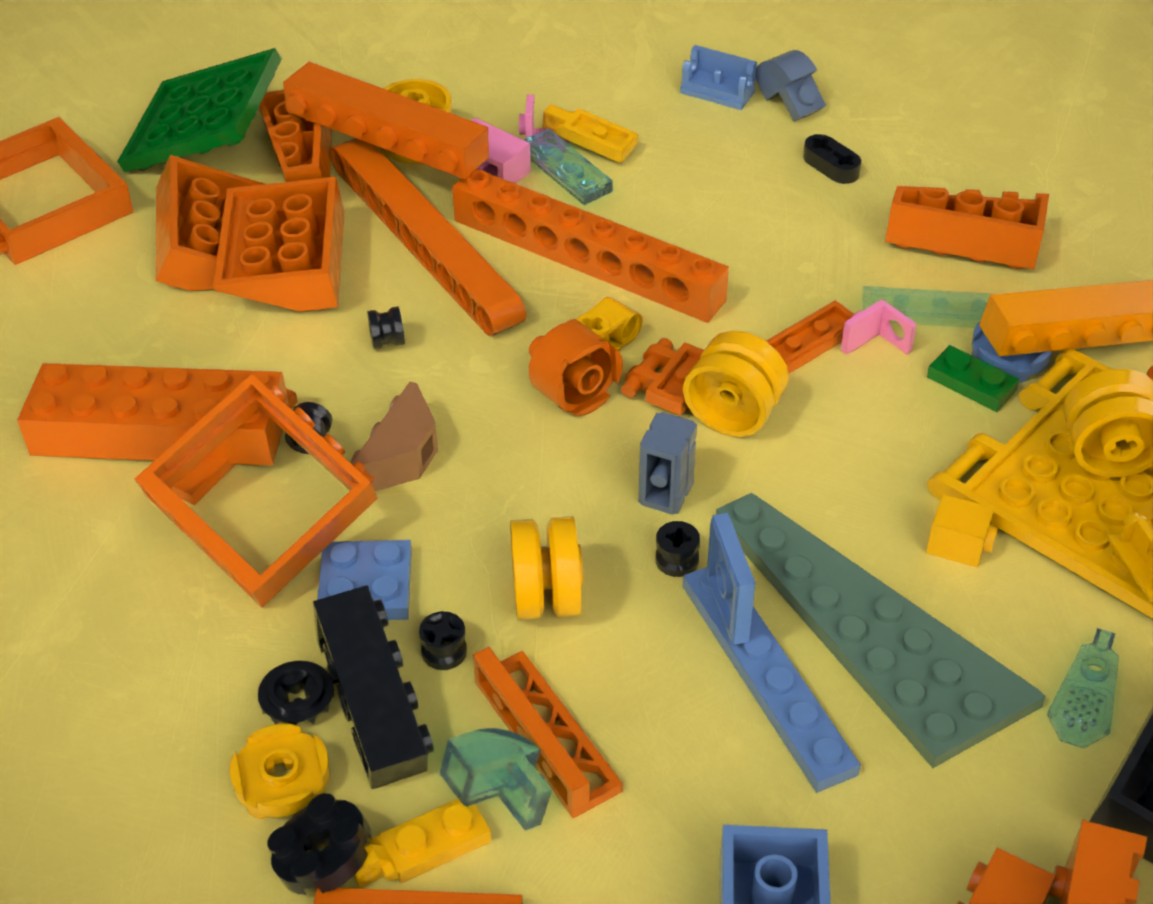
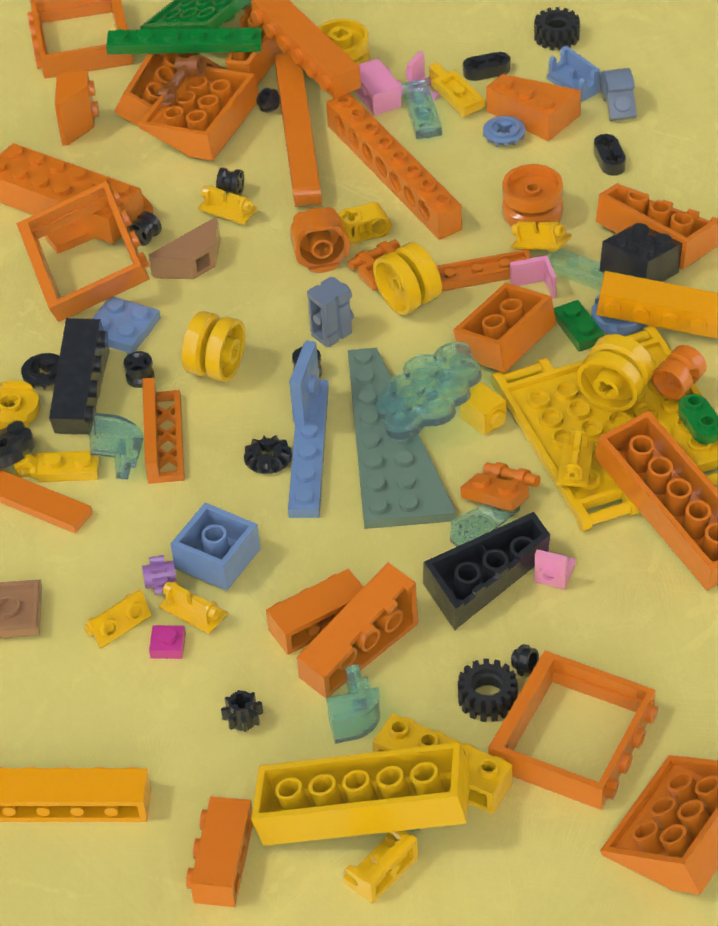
camera: 30 degrees right, 0 degrees up
(98, 284) = (75, 104): none -> orange slope
(211, 159) = (184, 40): none -> green plate
(237, 193) = (191, 66): none -> dark orange brick
(355, 202) = (268, 100): none -> black plate
(417, 362) = (232, 207): none -> yellow hinge
(603, 94) = (486, 66): none -> black beam
(653, 32) = (556, 28): none -> black tyre
(674, 165) = (504, 125): none -> medium blue gear
(699, 124) = (539, 105): none -> orange wedge
(728, 721) = (267, 463): none -> black gear
(799, 234) = (532, 195): none -> orange wheel
(862, 276) = (549, 237): none -> yellow hinge
(884, 531) = (428, 390): none -> clear light blue plate
(907, 409) = (506, 326): none -> orange brick
(988, 263) = (641, 253): none -> black brick
(1073, 644) = (500, 486): none -> orange plate

